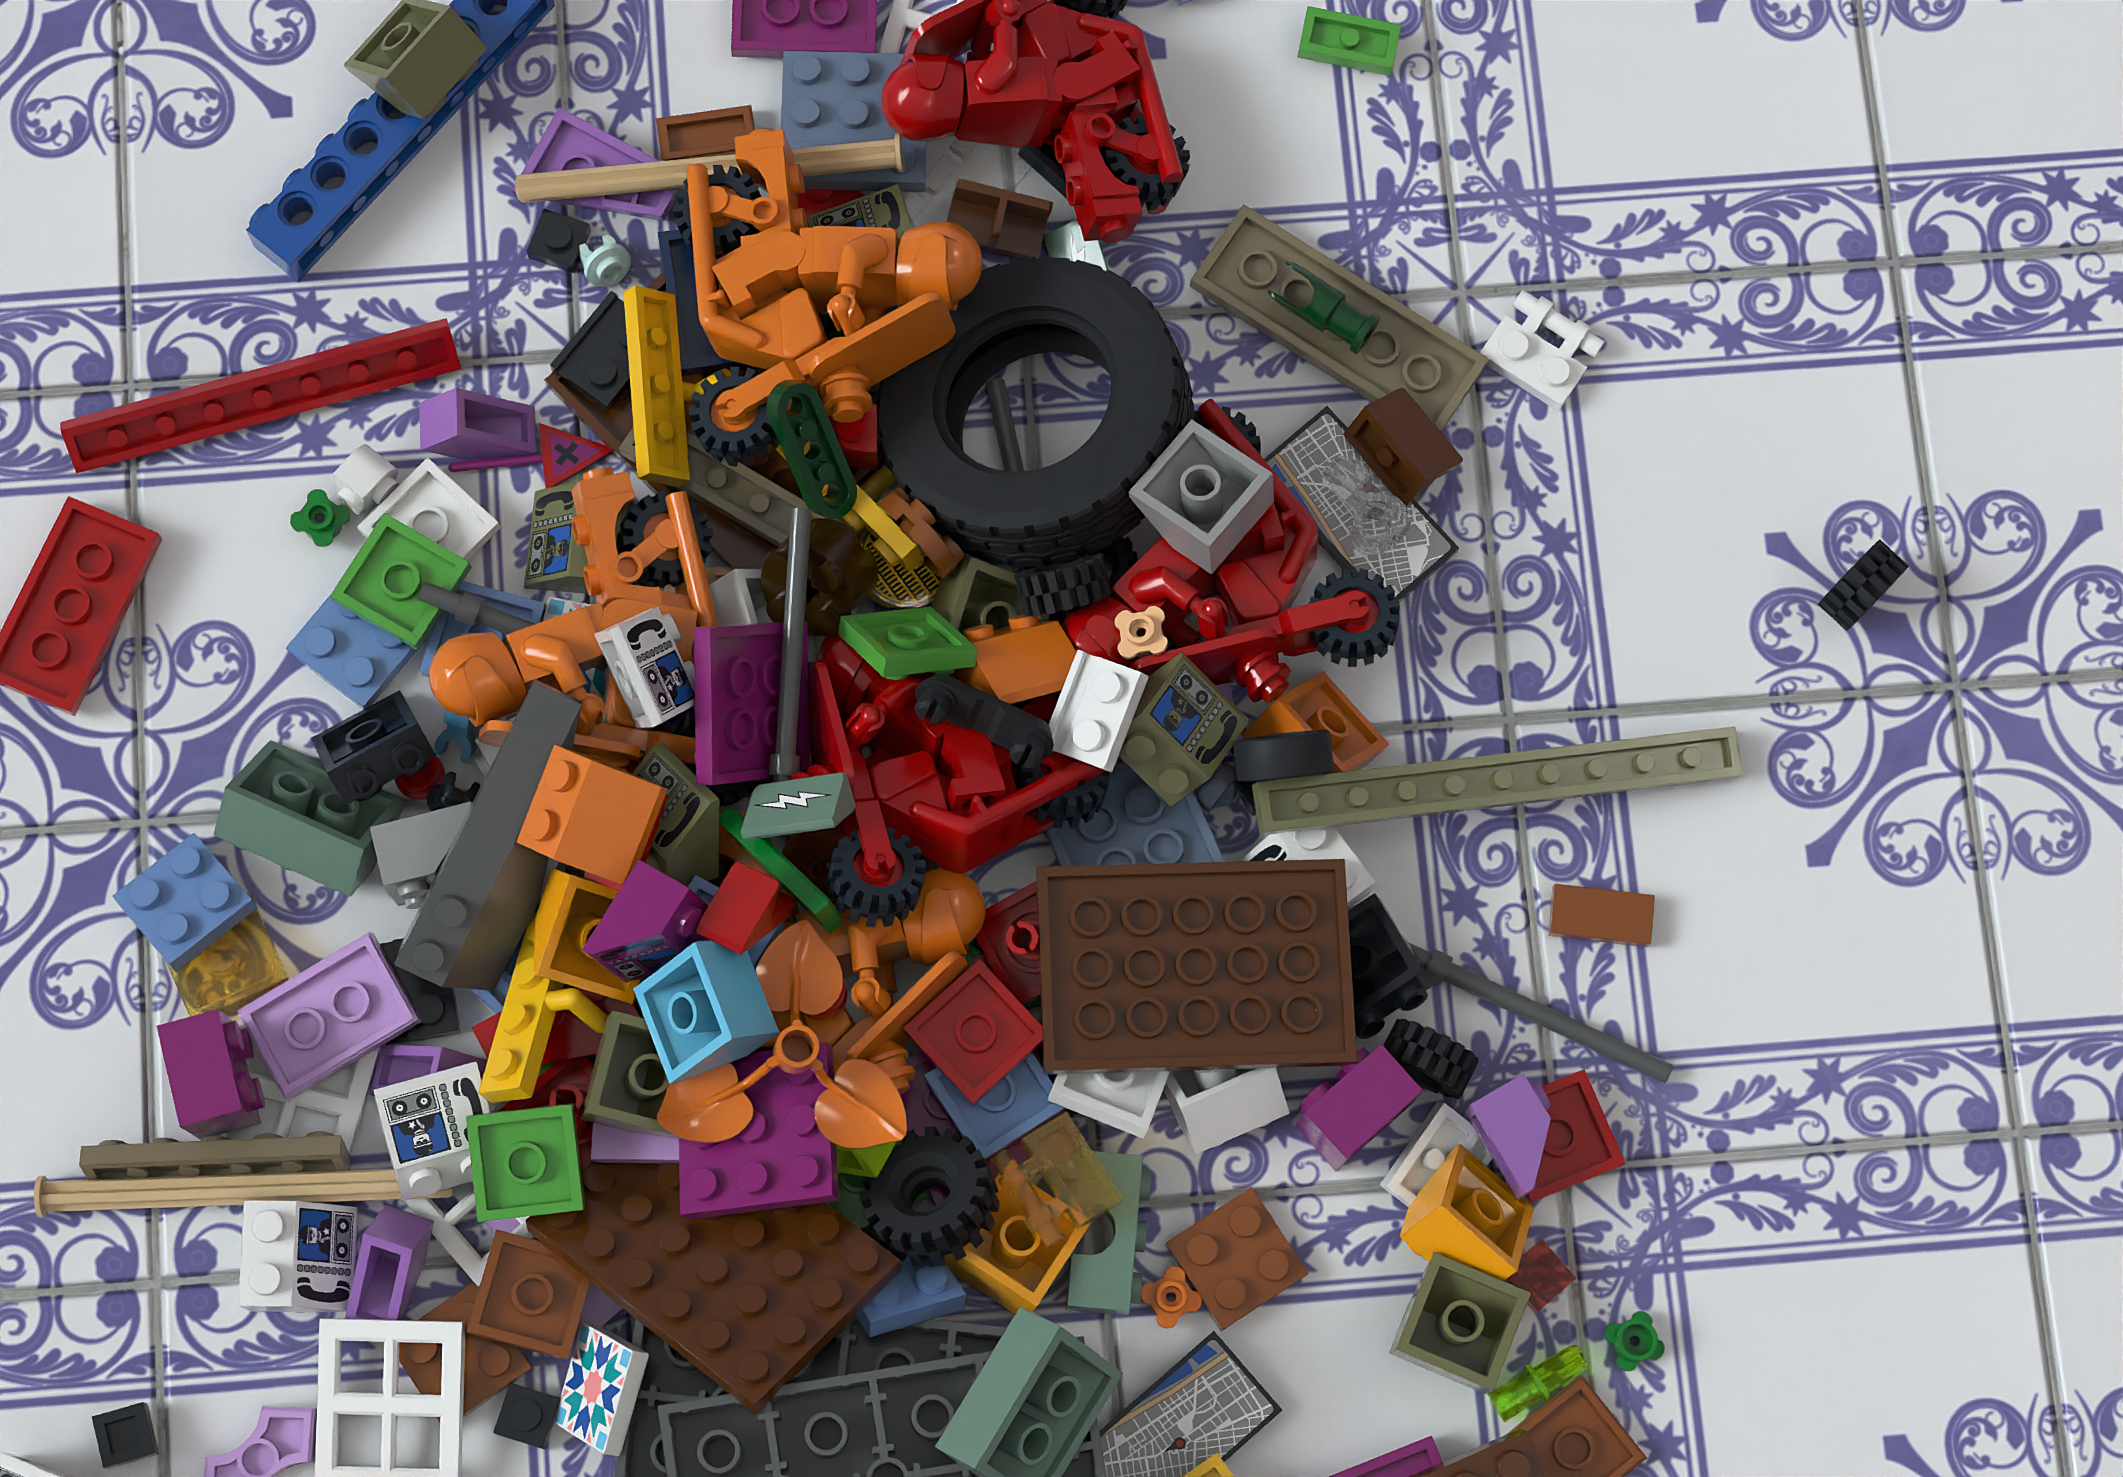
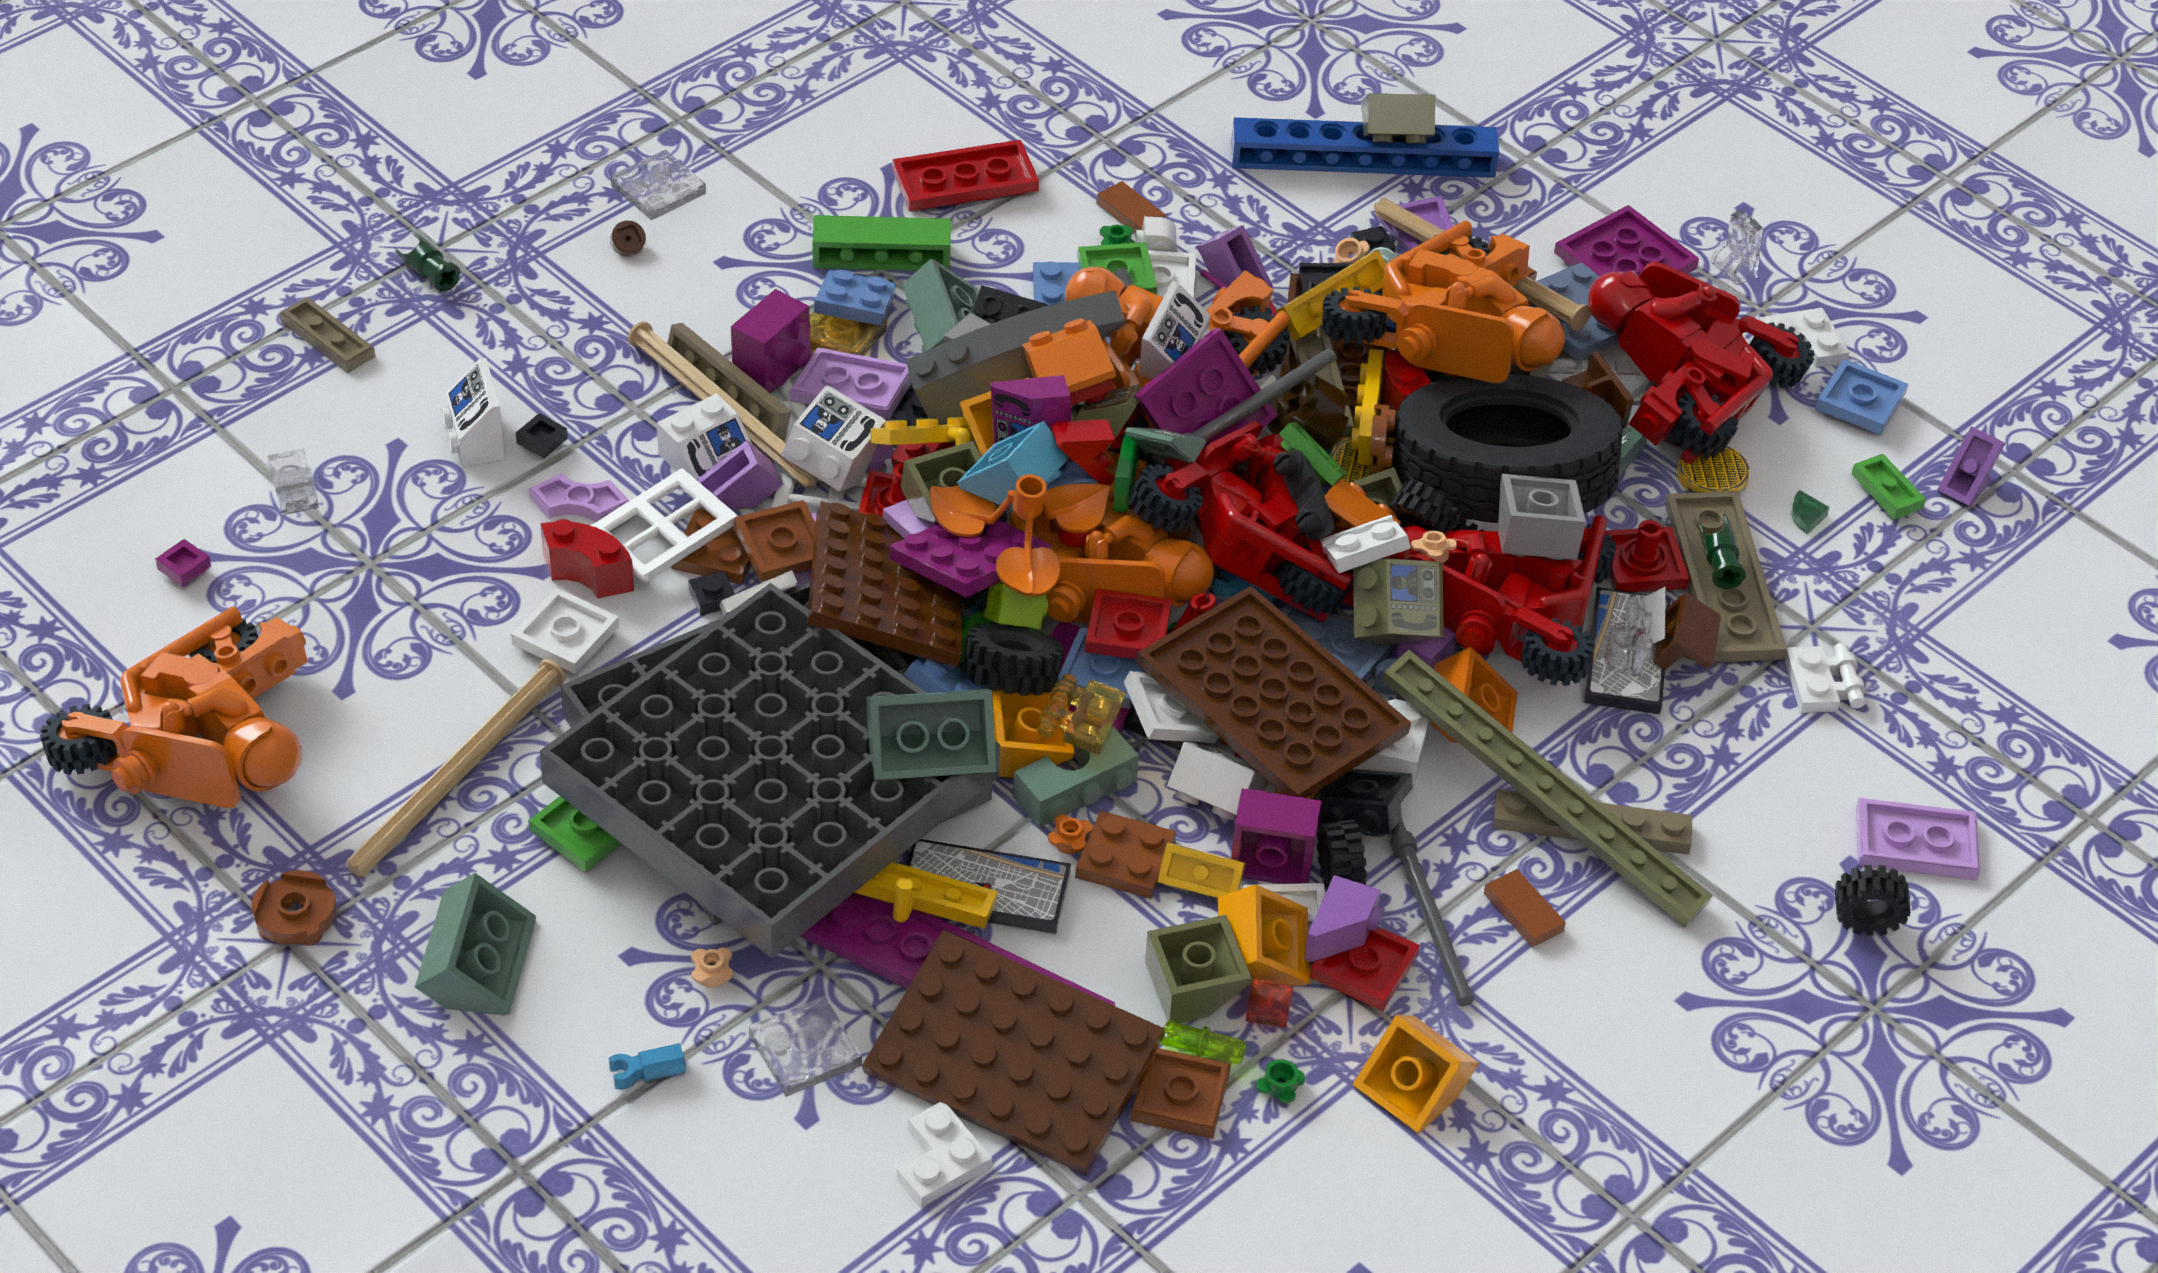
camera: 55 degrees right, 30 degrees down
(114, 797) = (880, 242): none -> bright green brick
(260, 395) = (1156, 178): red plate -> none
(280, 459) = (1127, 205): none -> dark orange tile
(525, 1162) = (852, 469): bright green plate -> none
(548, 278) = (1350, 246): none -> light nougat plate
(824, 460) = (1382, 334): dark green plate -> none
(1199, 203) = (1715, 474): none -> tile
(1258, 379) = (1647, 559): none -> red plate
(1283, 755) = (1440, 650): black tyre -> none
(1311, 151) = (1808, 511): none -> clear green tile
(1328, 1207) = (1200, 871): none -> yellow plate
(1336, 439) = (1656, 605): none -> white sticker
(1572, 721) = (1659, 828): none -> dark tan plate
(1727, 1204) = (1415, 1072): none -> light orange slope
(1799, 453) = (1917, 838): none -> lavender tile

